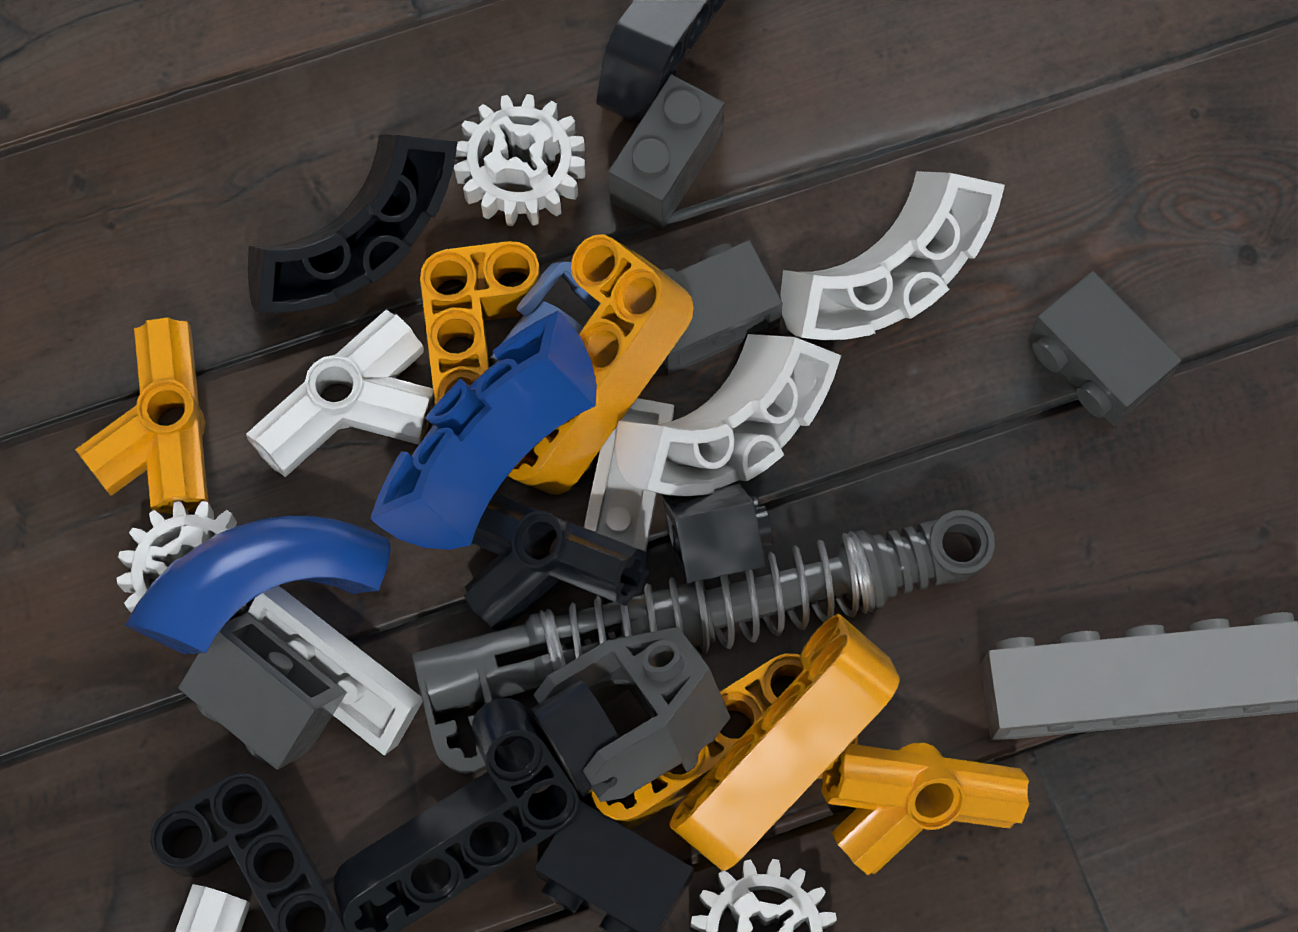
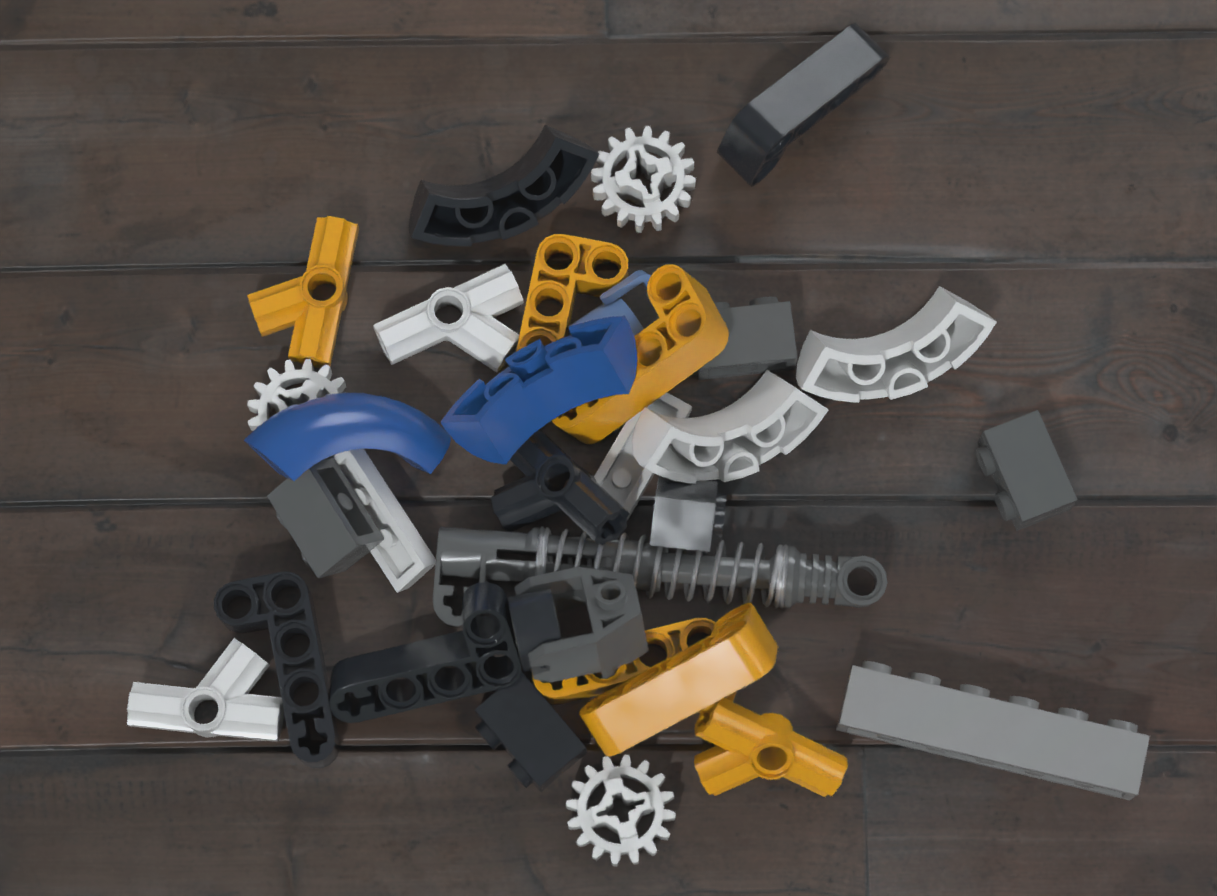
camera: 20 degrees right, 5 degrees up
(666, 152) = (754, 210): dark grey brick -> none

